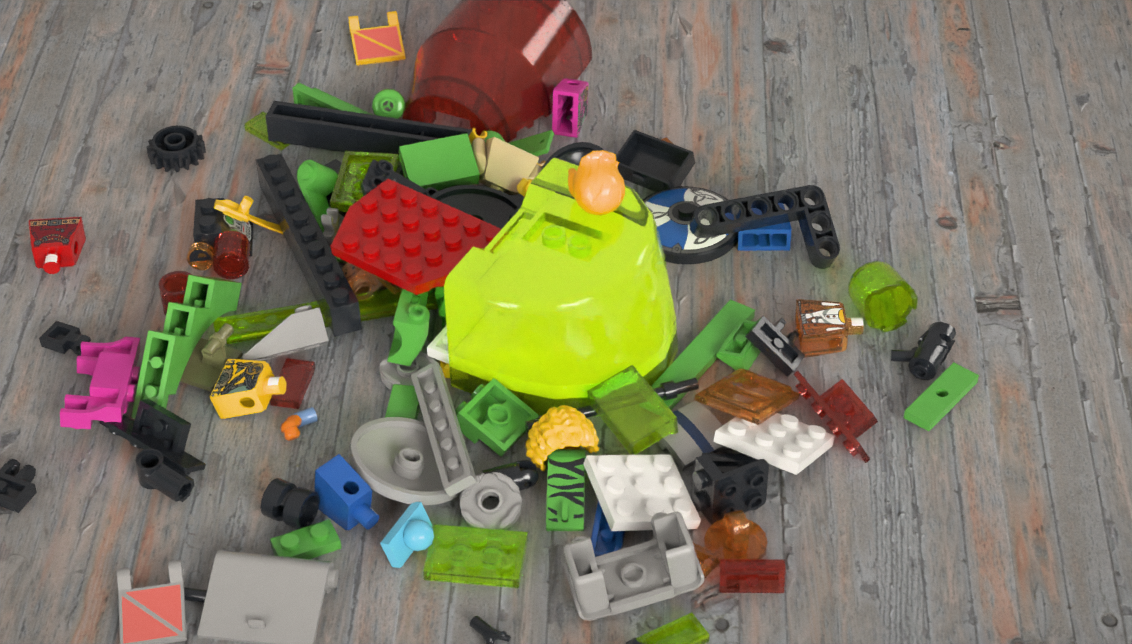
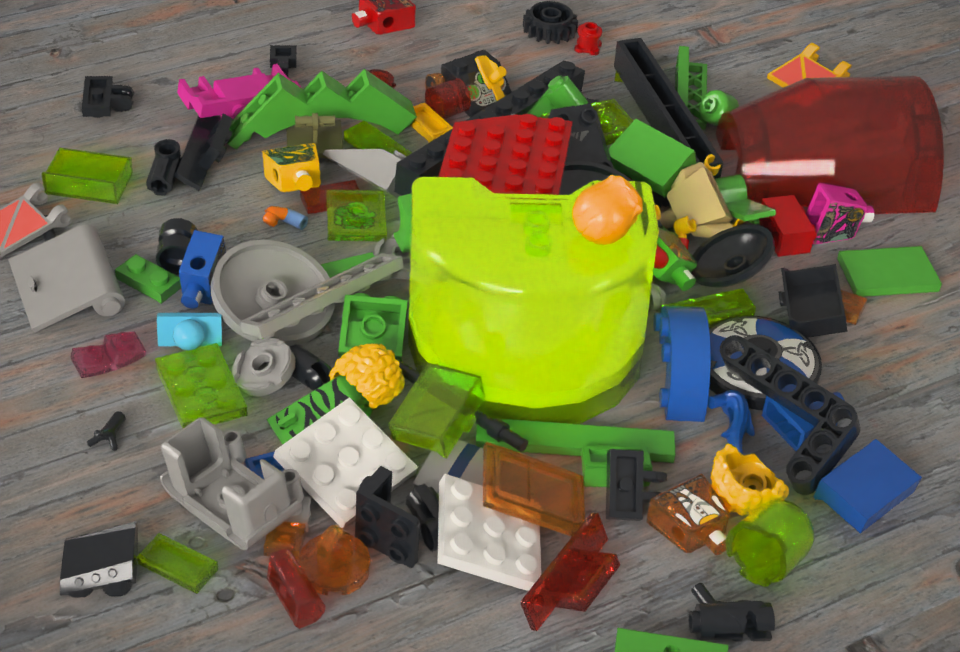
camera: 55 degrees right, 0 degrees up
(122, 536) = (87, 175): none -> clear neon green container
(218, 138) = (589, 38): none -> red brick
(253, 282) = (429, 123): none -> yellow tile
(336, 375) = (356, 215): none -> clear neon green tile
(390, 603) = (115, 353): none -> clear pink slope
(564, 131) = (789, 226): none -> red brick
(641, 110) = (889, 271): none -> bright green tile
(690, 254) = (688, 362): none -> blue brick
(731, 257) = (739, 415): none -> blue piece
(819, 282) = (744, 481): none -> yellow hair
(856, 228) = (867, 485): none -> blue container

